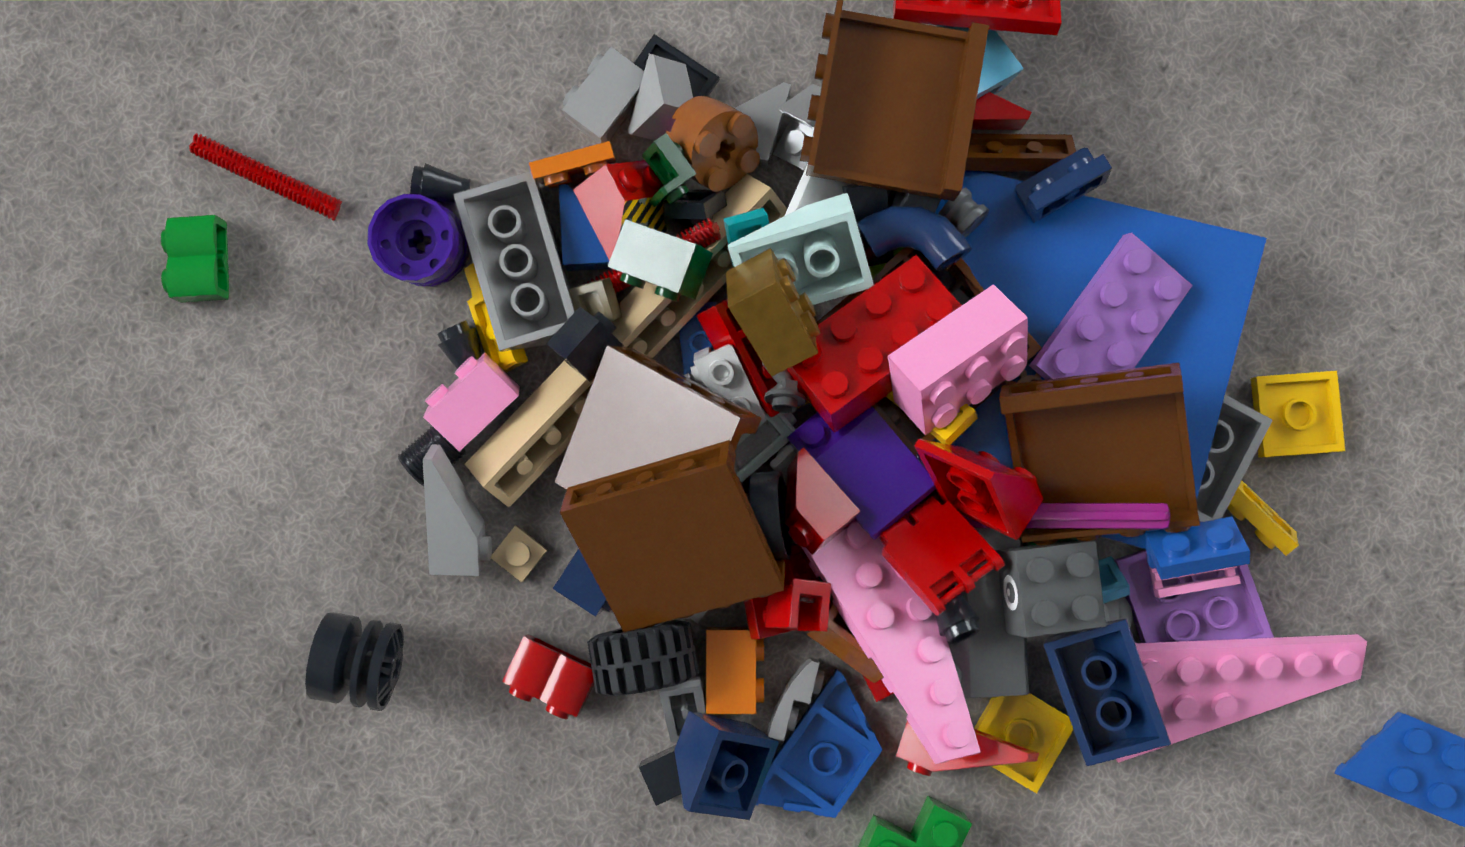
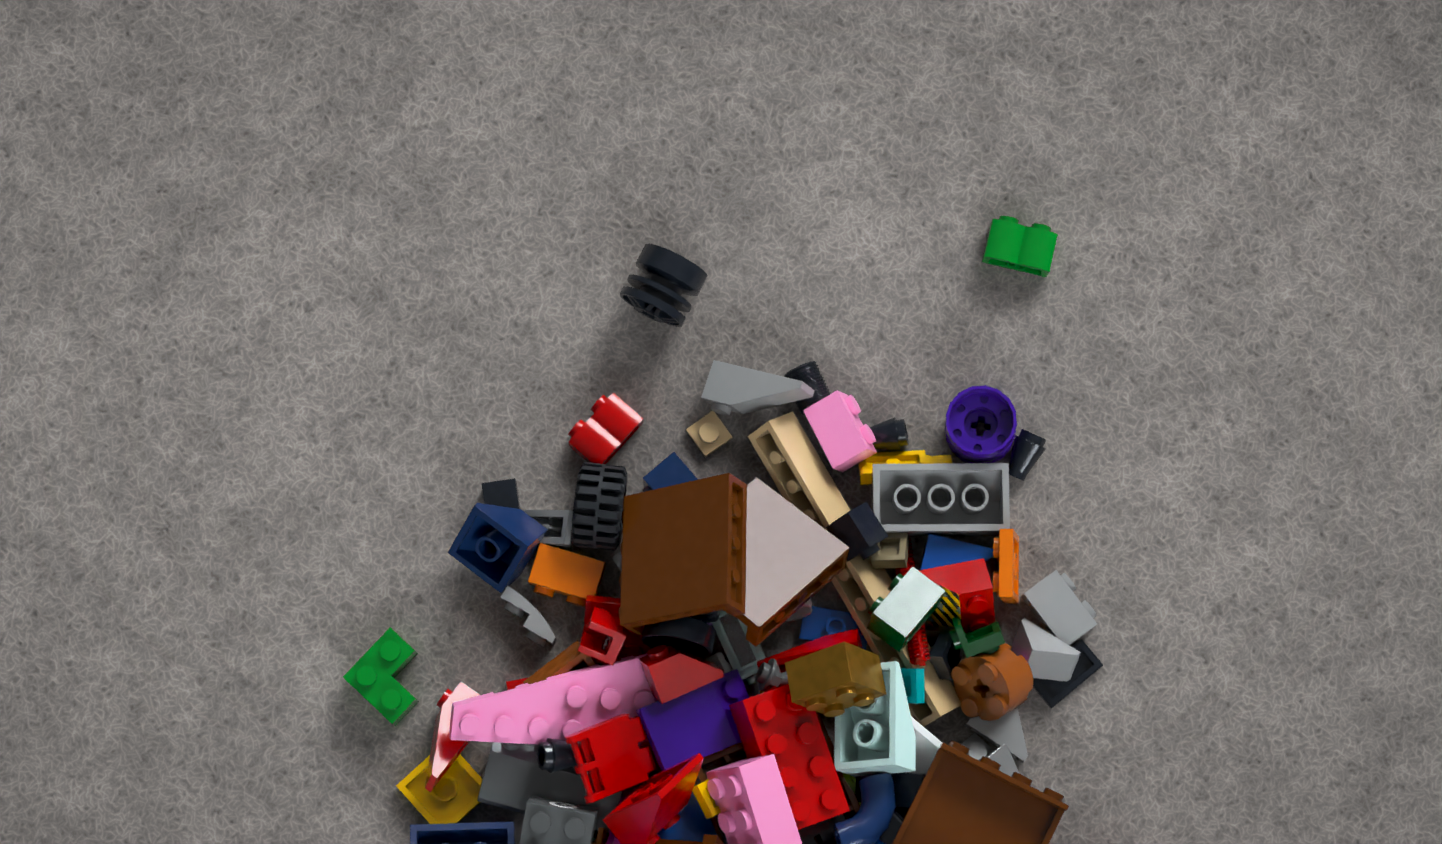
camera: 105 degrees right, 5 degrees down
(265, 176) = (1071, 318): red axle -> none
(725, 376) = (795, 635): white bracket -> none
(822, 755) = (478, 626): blue wing -> none

